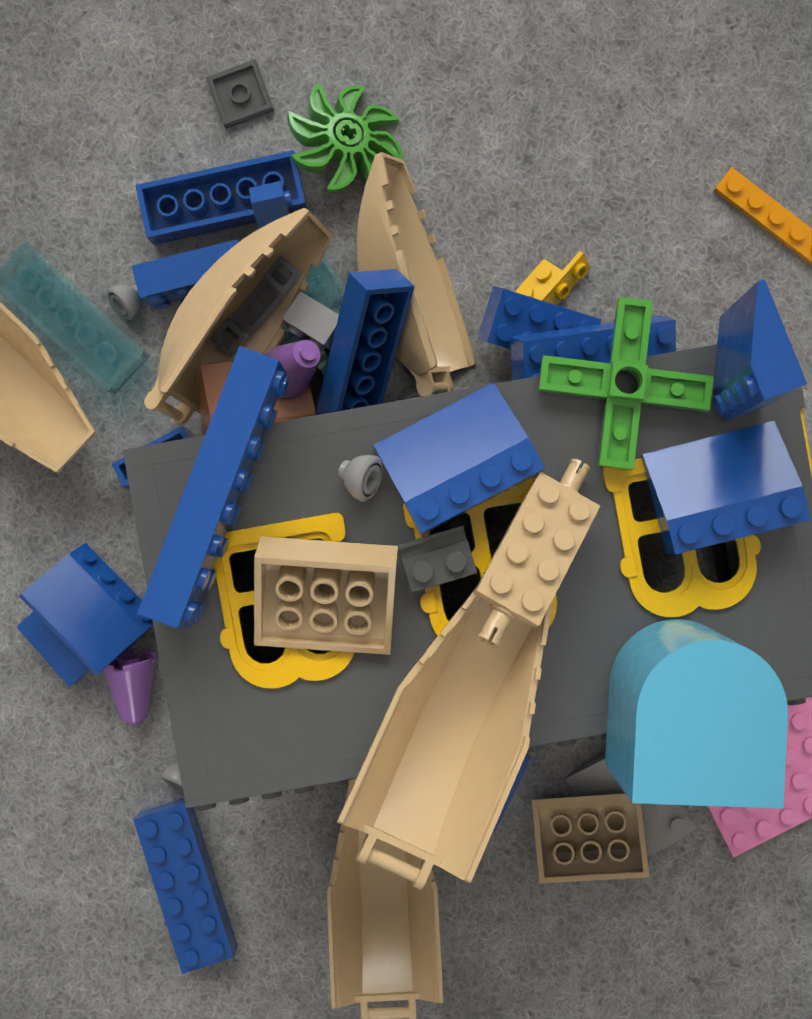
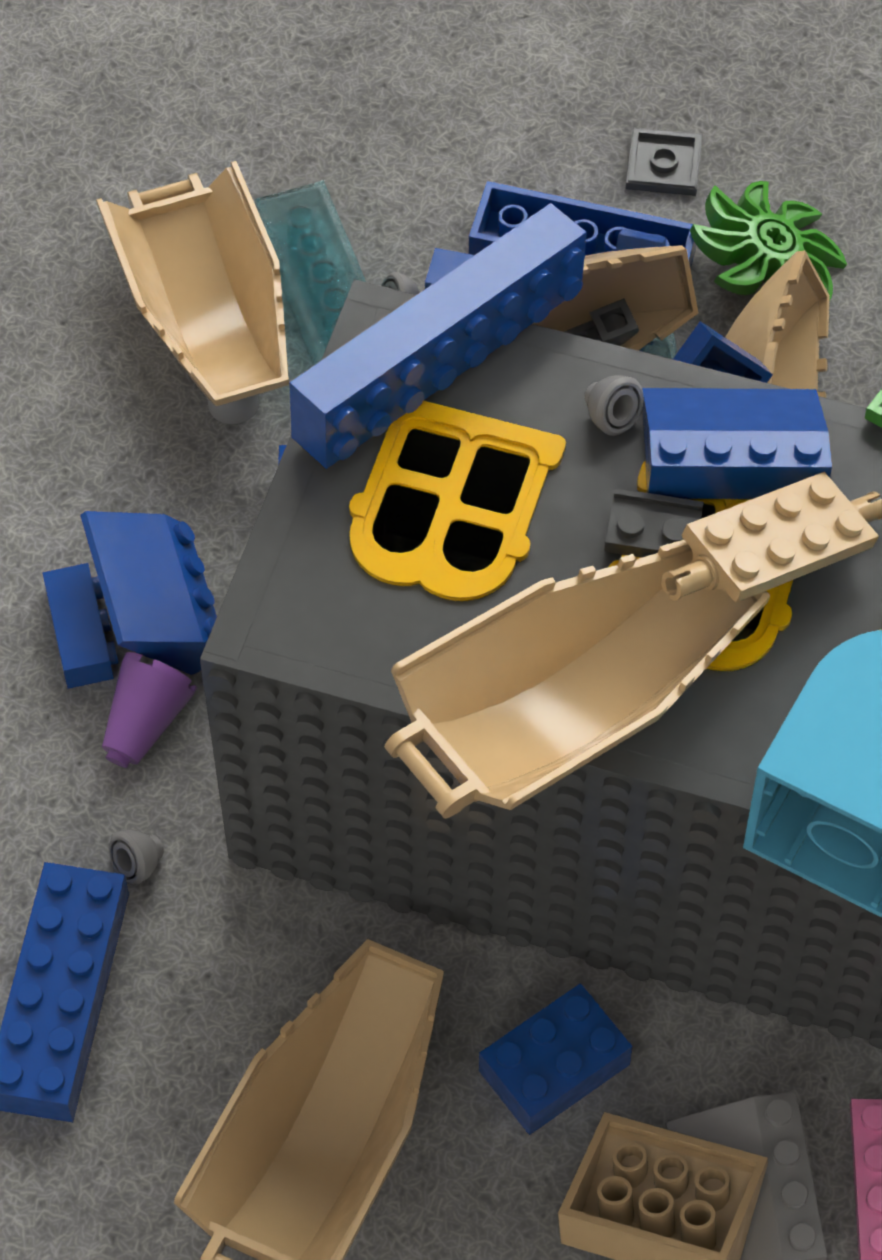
camera: 25 degrees right, 30 degrees down
(324, 595) = (500, 498): tan slope -> none

